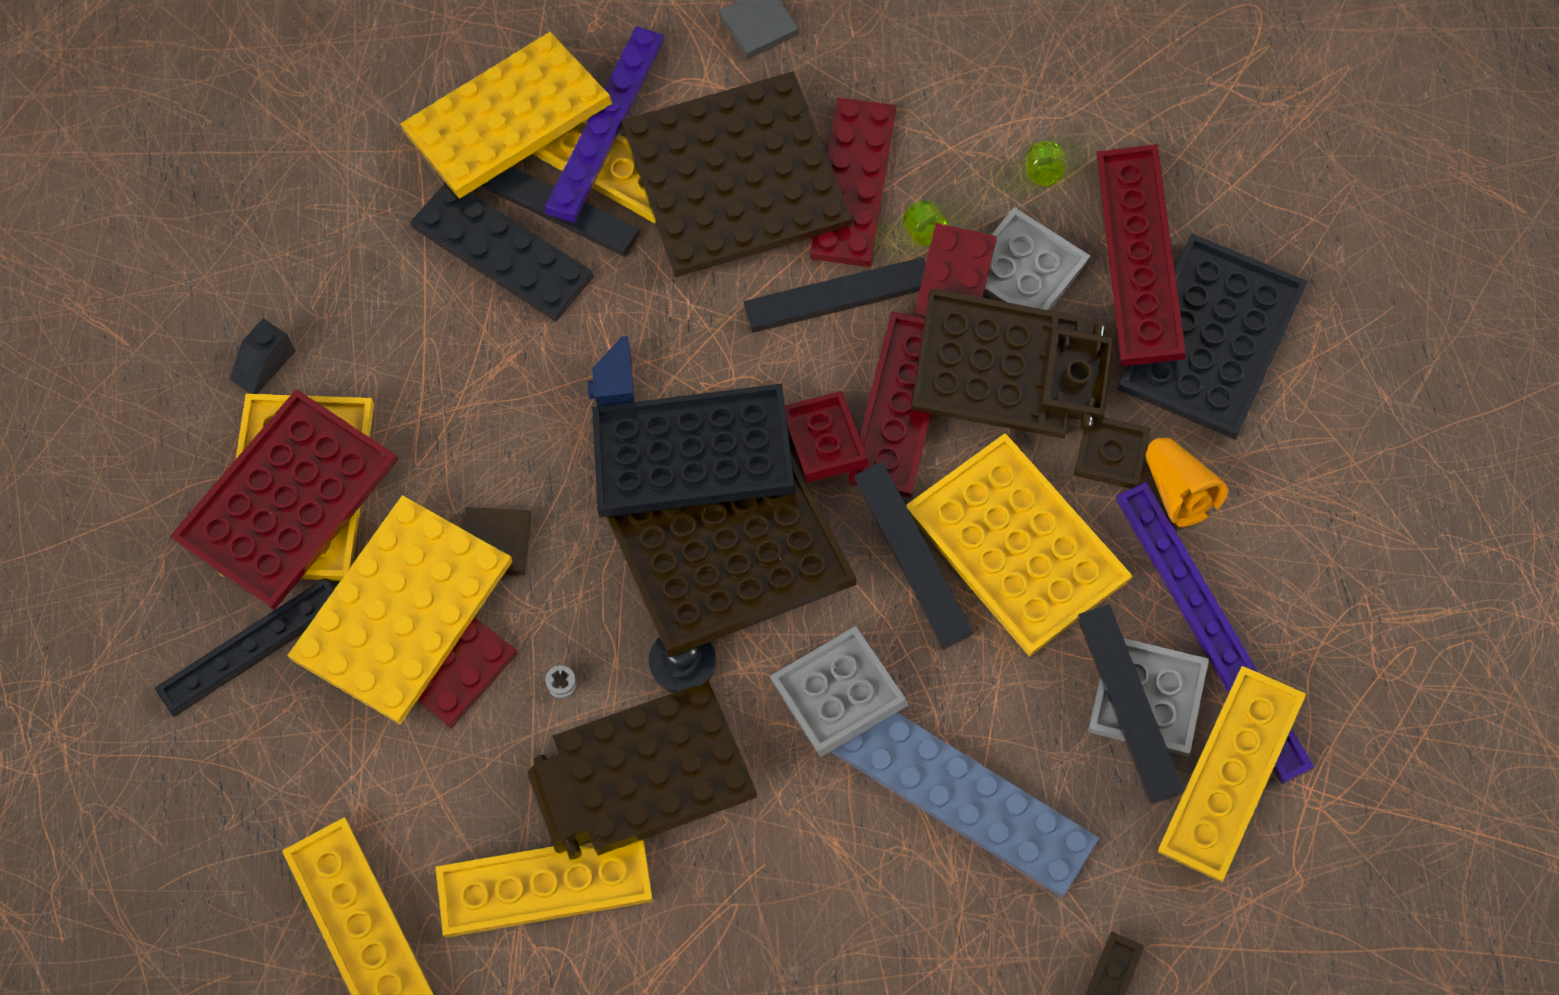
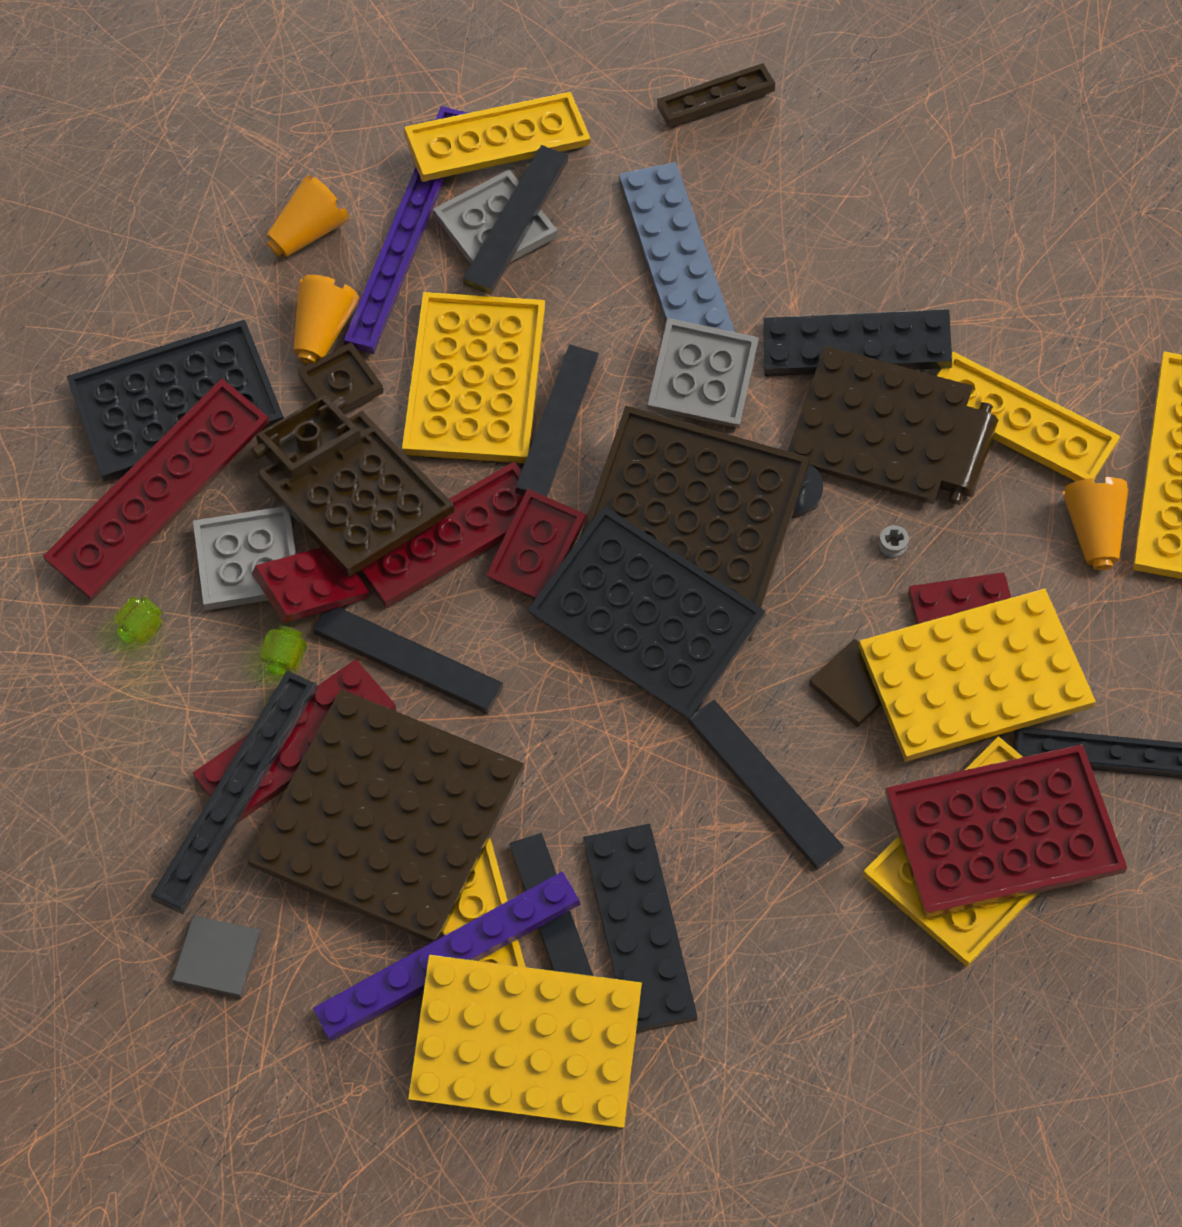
camera: 140 degrees left, 5 degrees down
(261, 357) = (929, 990): black slope -> none
(404, 831) = (1098, 518): none -> light orange cone
(498, 411) = (766, 785): none -> black tile
(613, 376) = (649, 728): dark blue slope -> none
(740, 840) = (899, 338): none -> black plate
(852, 111) = (234, 793): none -> black tile
(1293, 560) = (305, 218): none -> light orange cone

